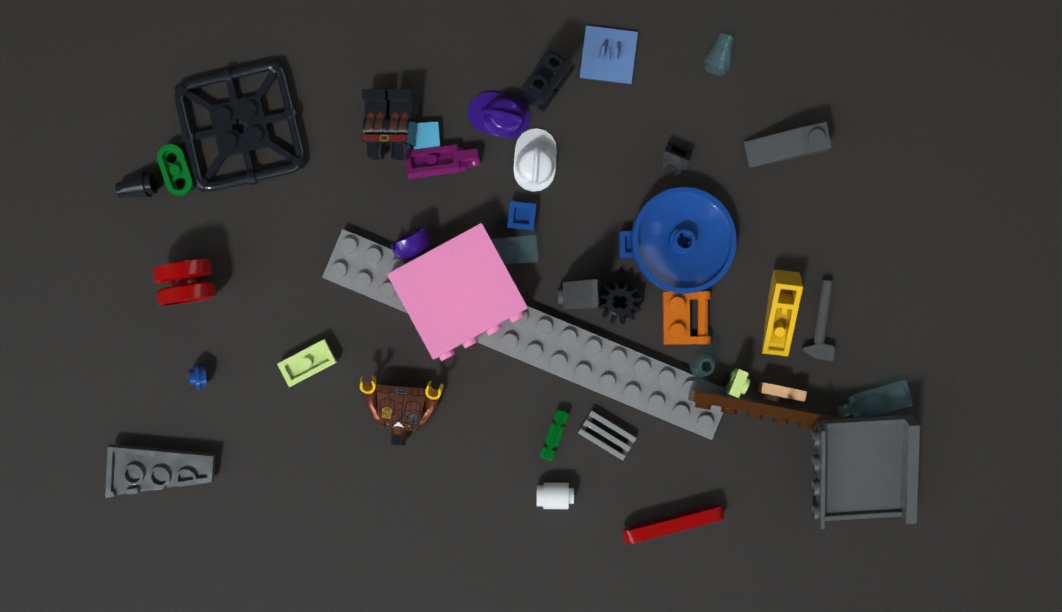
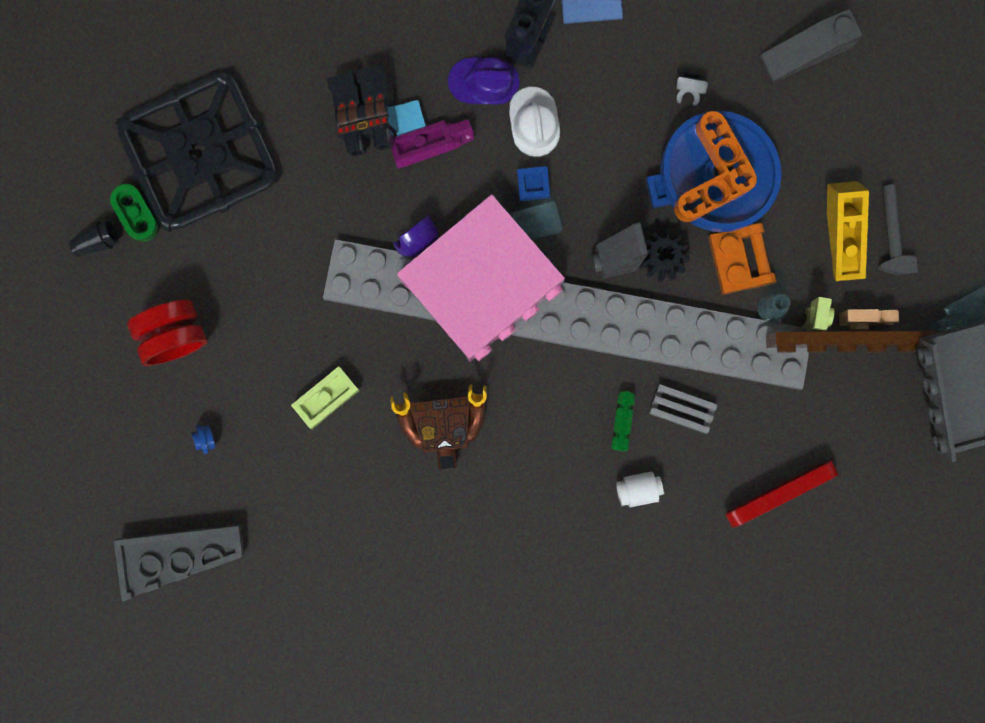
camera: 15 degrees left, 5 degrees down
(684, 251) = (726, 178): none -> orange beam

